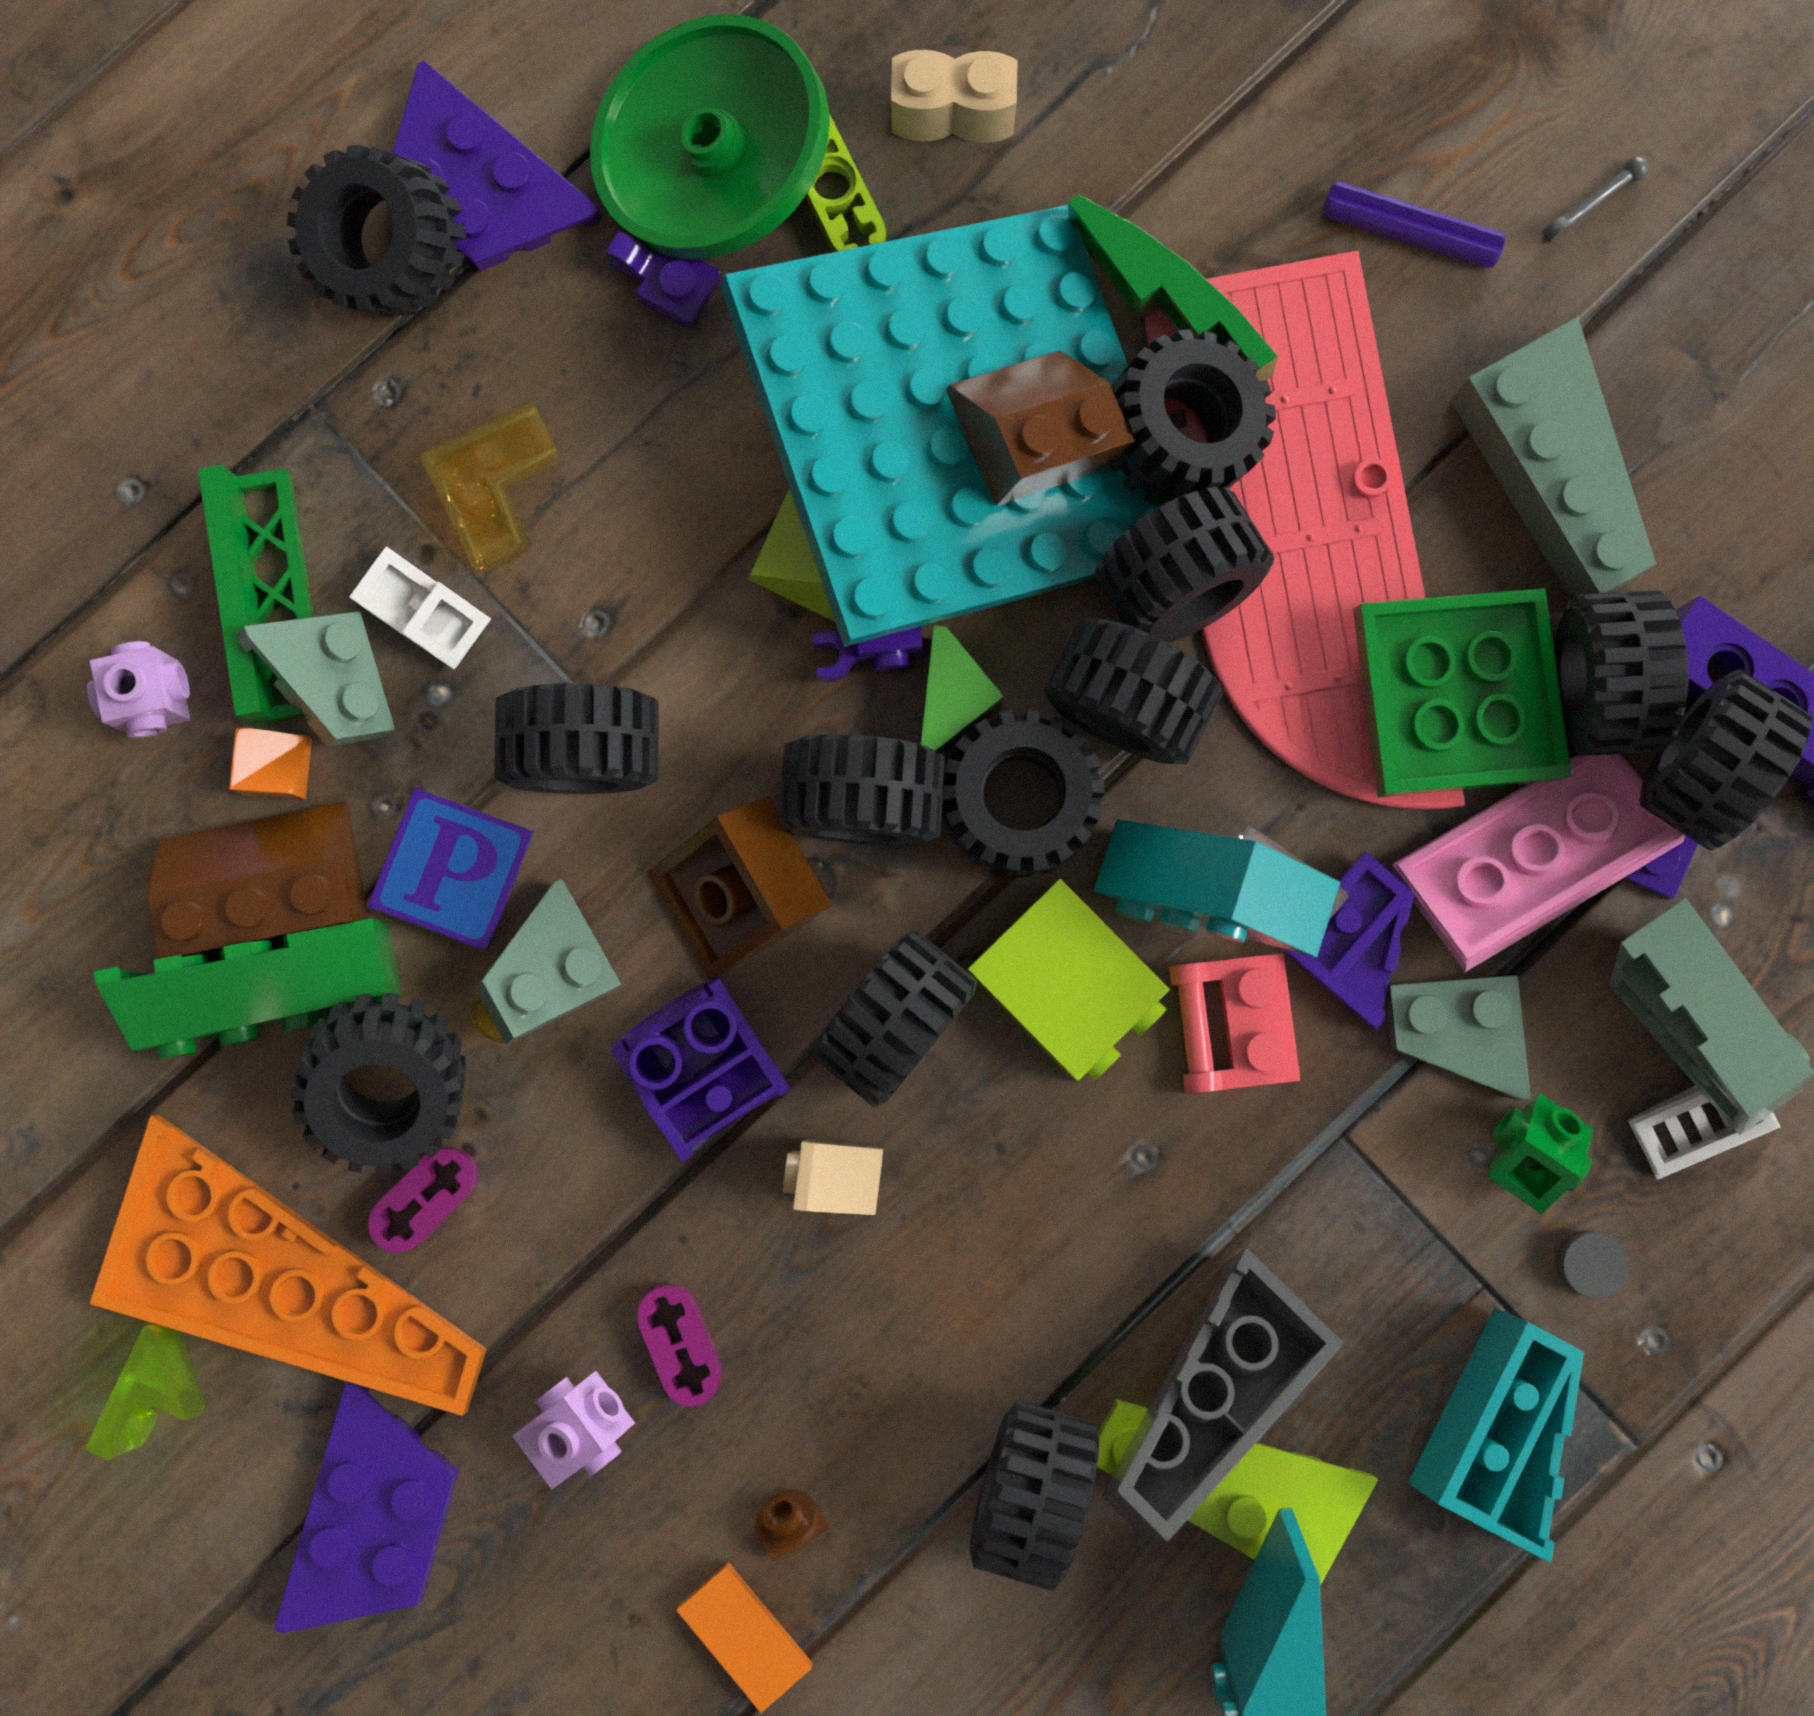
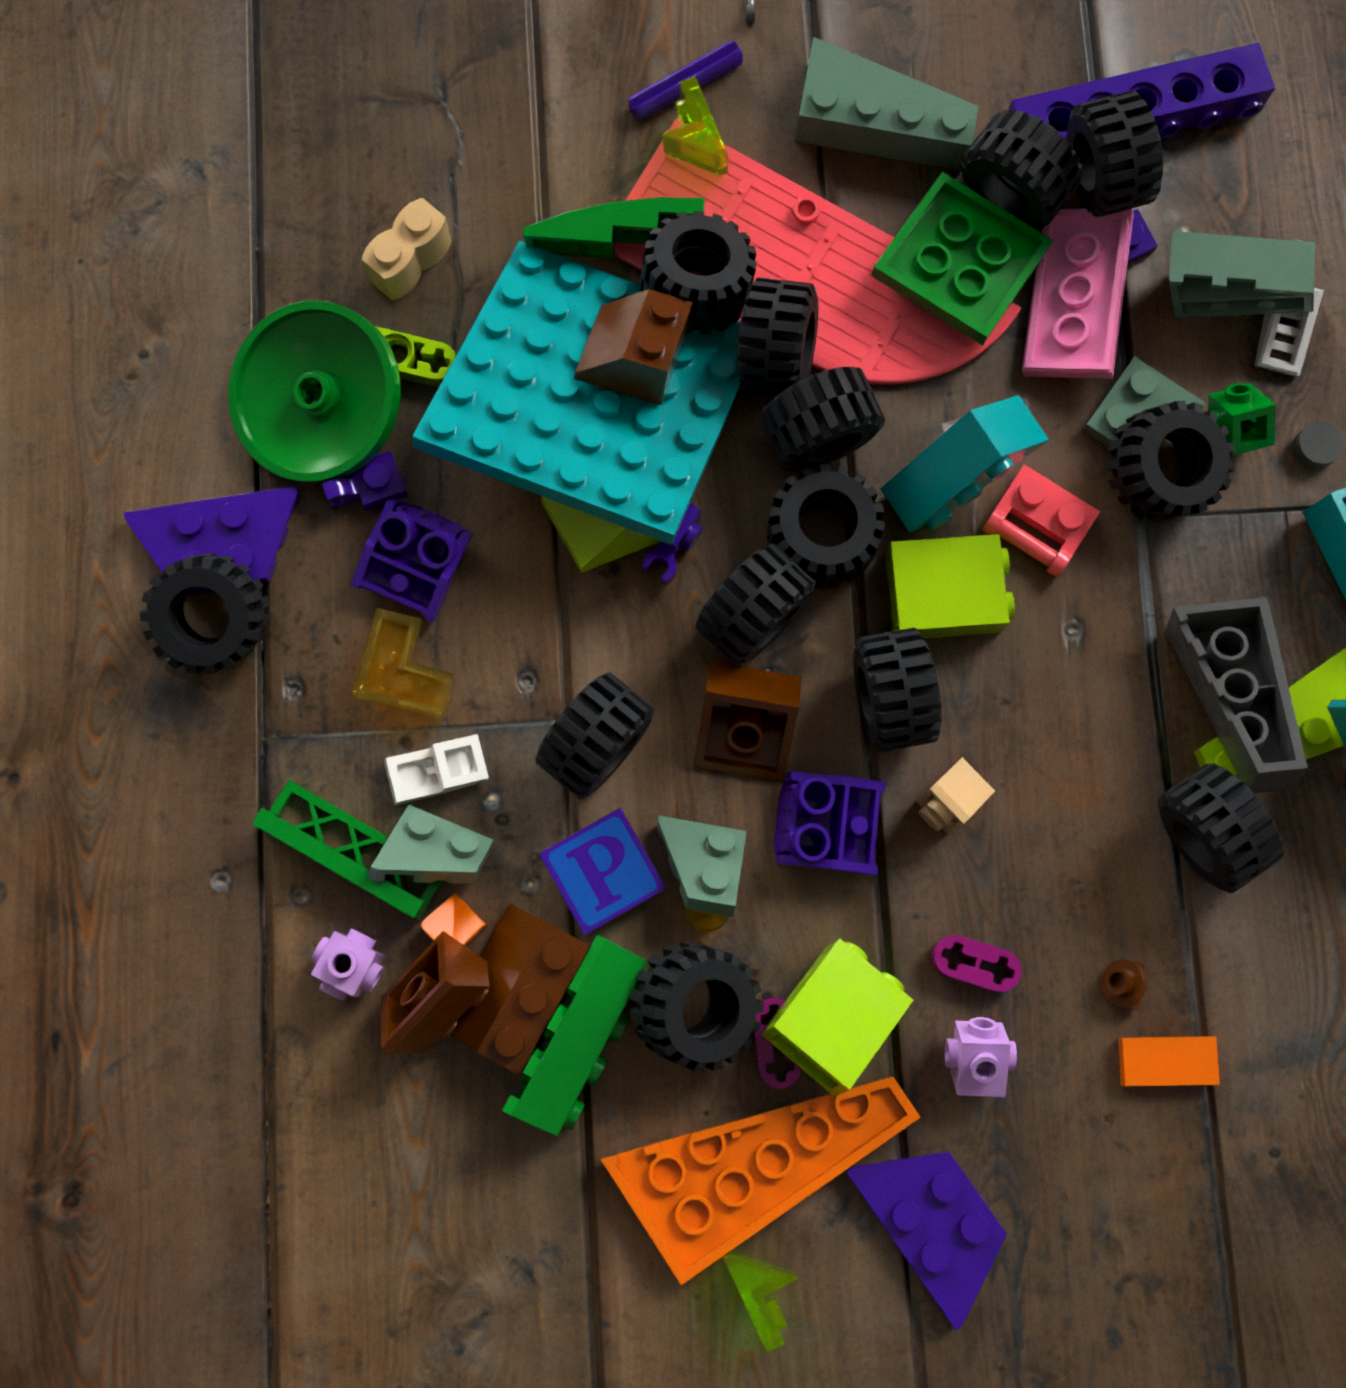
camera: 55 degrees left, 5 degrees down
(166, 803) = (432, 996): none -> reddish brown slope
(495, 1242) = (838, 1016): none -> lime brick
(623, 390) = (412, 557): none -> dark purple slope
(956, 693) = (736, 516): bright green slope -> none
(1348, 292) = (698, 137): none -> clear neon green slope
(1361, 940) = (1056, 417): dark purple wing -> none
(1451, 1151) = (1202, 454): none -> black tyre

